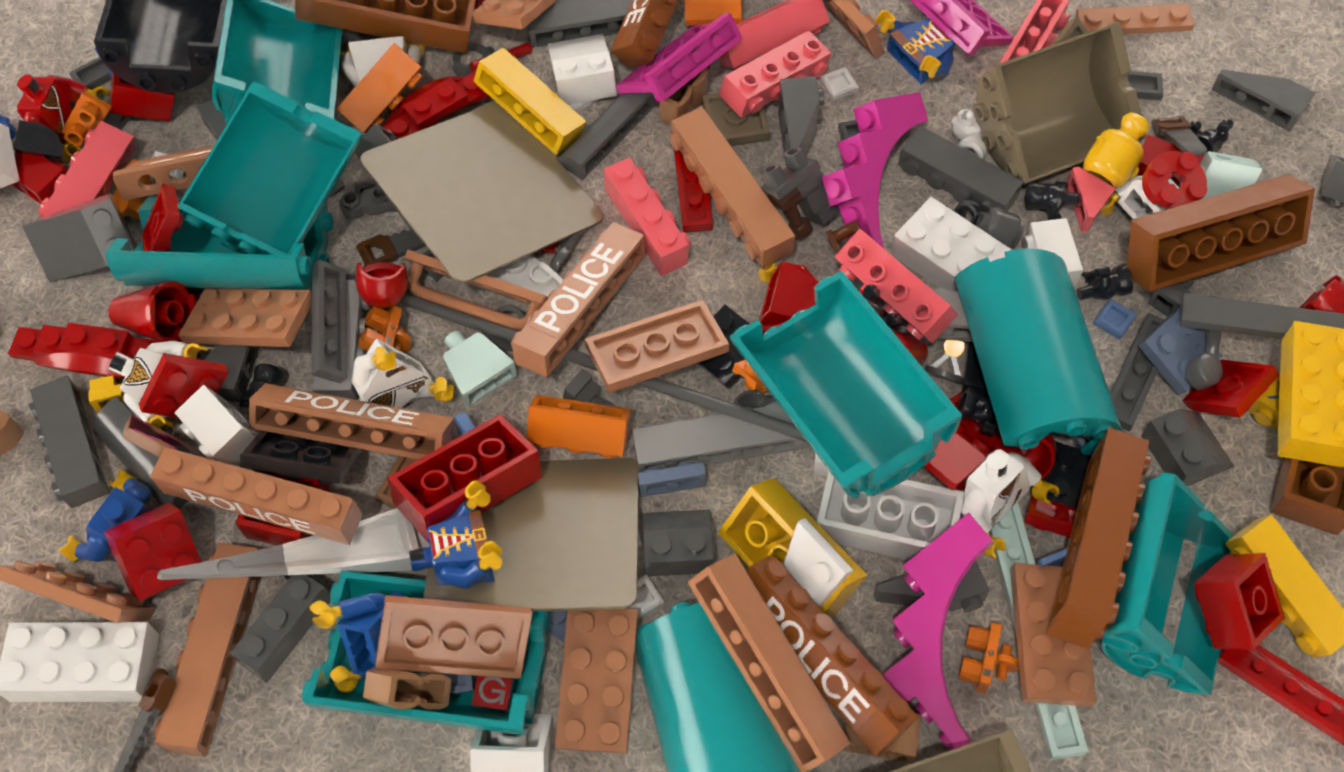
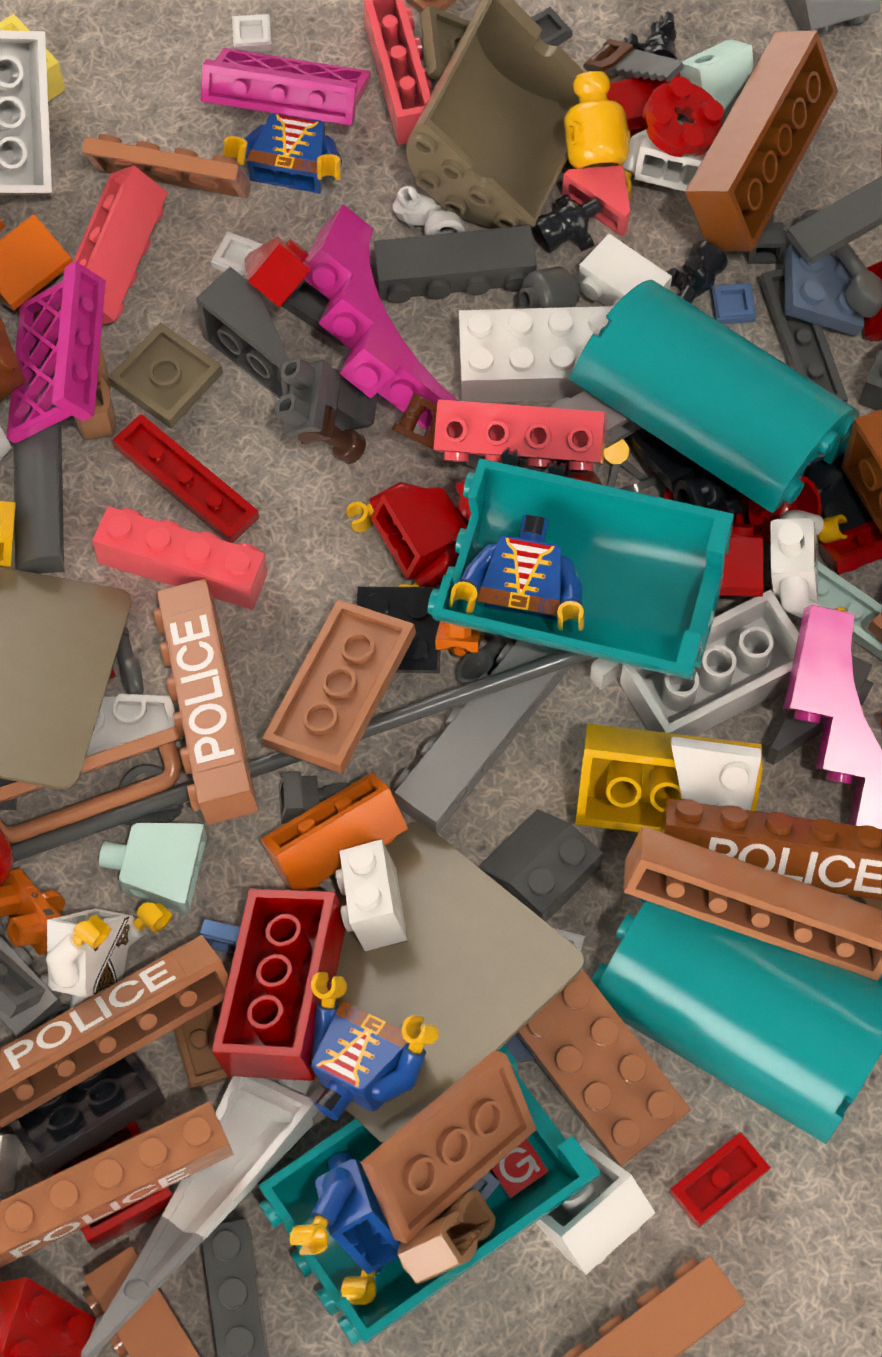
camera: 45 degrees left, 5 degrees up
(562, 474) = (371, 895): none -> white brick
(660, 480) = (485, 795): sand blue plate -> none
(732, 187) = (245, 455): nougat brick -> none
(759, 81) = (169, 295): coral brick -> none
(806, 359) = (523, 577): none -> torso
(838, 95) = (277, 268): none -> red slope
(967, 205) = (501, 288): black plate -> none

